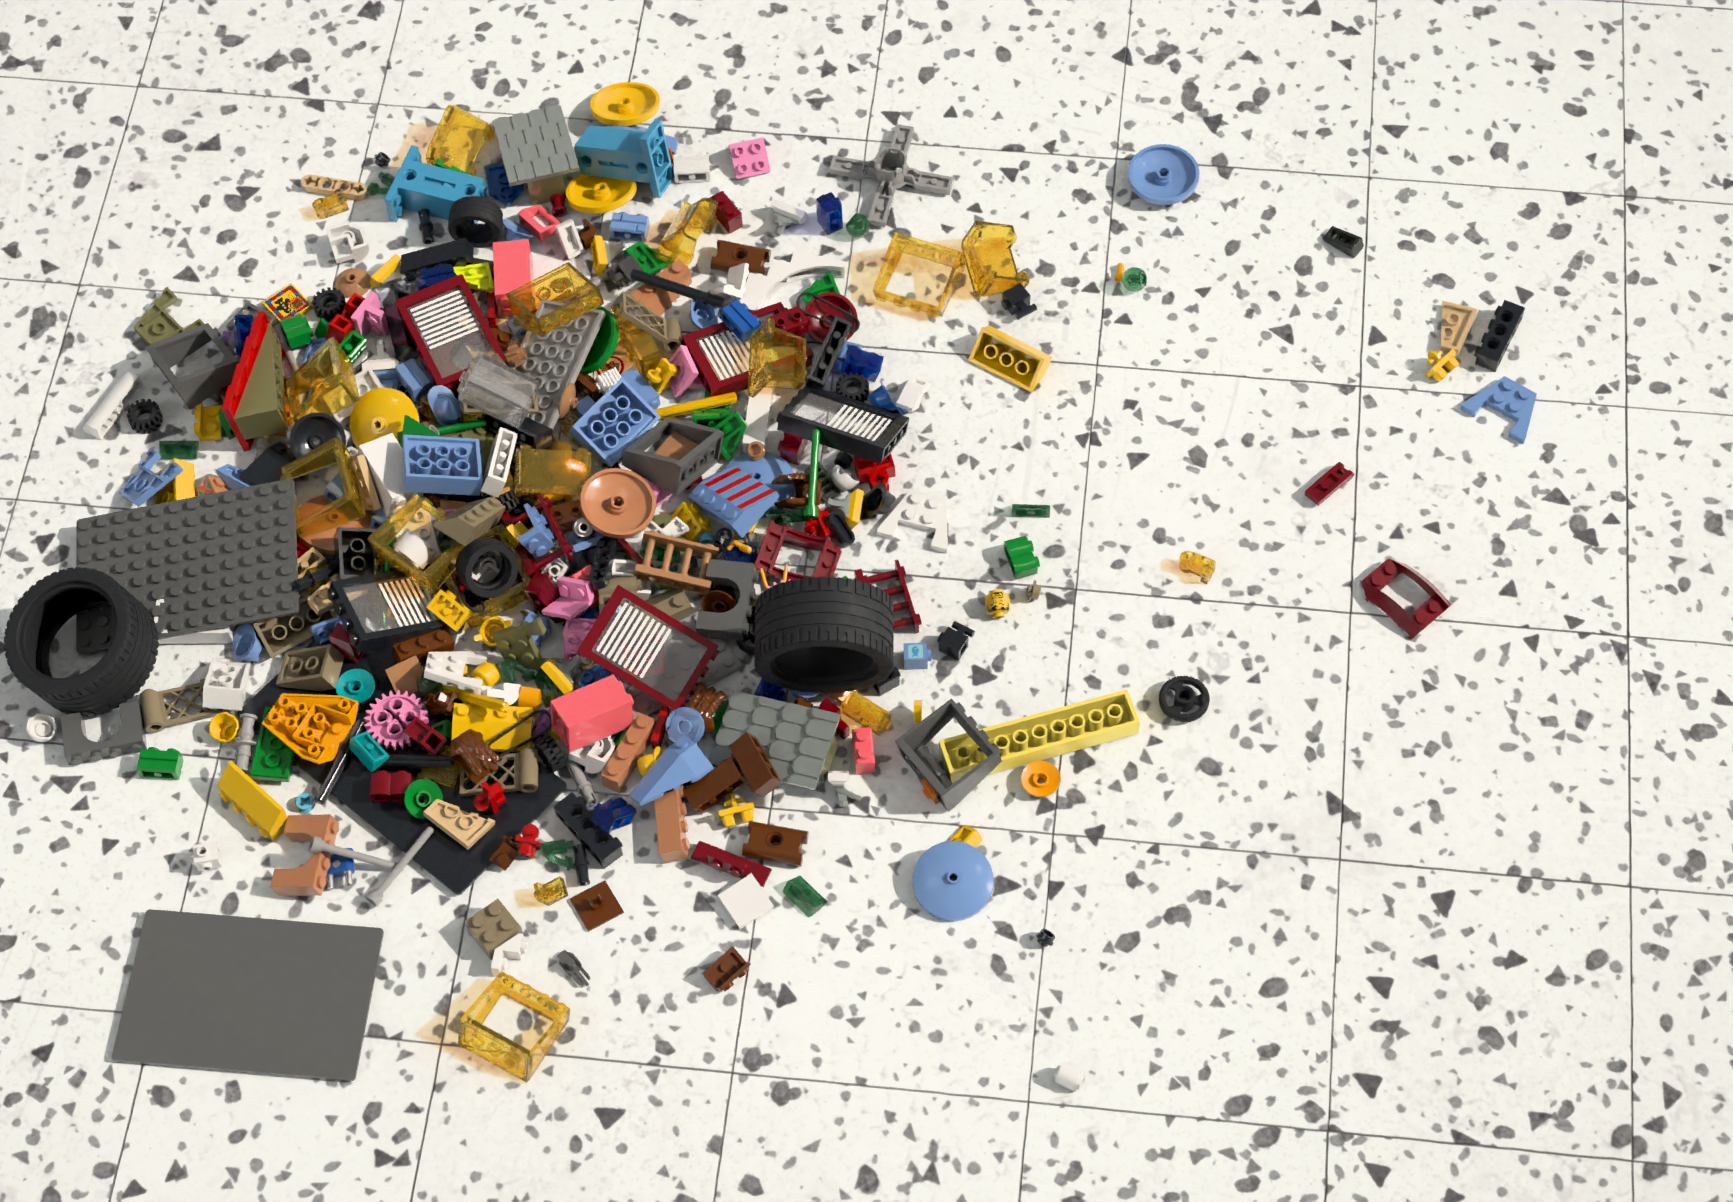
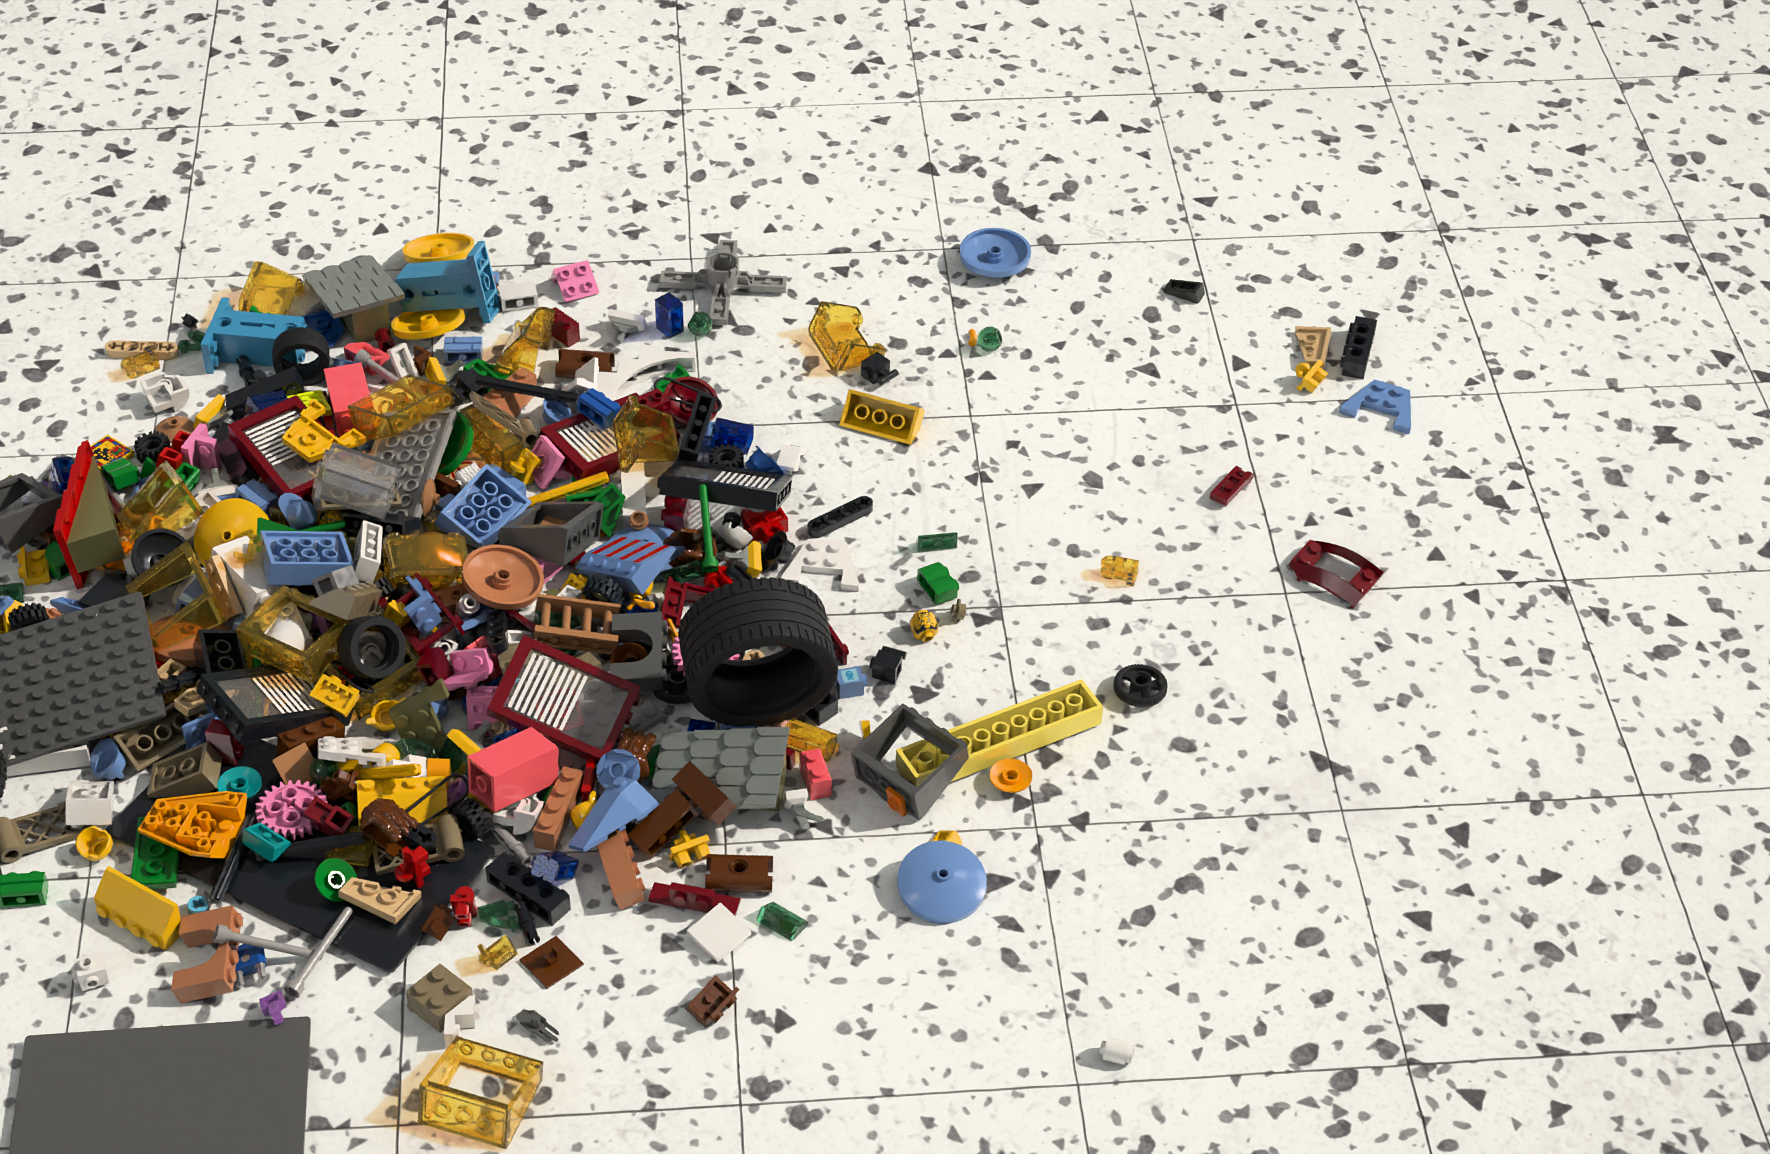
camera: 15 degrees left, 15 degrees down
(193, 488) = (27, 615): none -> black tyre
(244, 742) = (119, 852): light grey piece -> none
(352, 913) = (273, 1005): none -> medium lavender plate
(388, 786) = (295, 874): dark red brick -> none
(394, 453) = (253, 547): none -> clear yellow bracket
(463, 496) = (335, 579): none -> flat silver slope
(469, 329) = (311, 439): none -> yellow wing
(504, 764) = (416, 835): none -> black beam
(533, 230) = (364, 357): none -> light grey piece
(705, 531) = (602, 589): none -> black bush
(925, 250) = (773, 336): clear yellow windscreen -> none
(948, 470) = (820, 526): none -> black beam
(1045, 937) = (1055, 922): black plate -> none

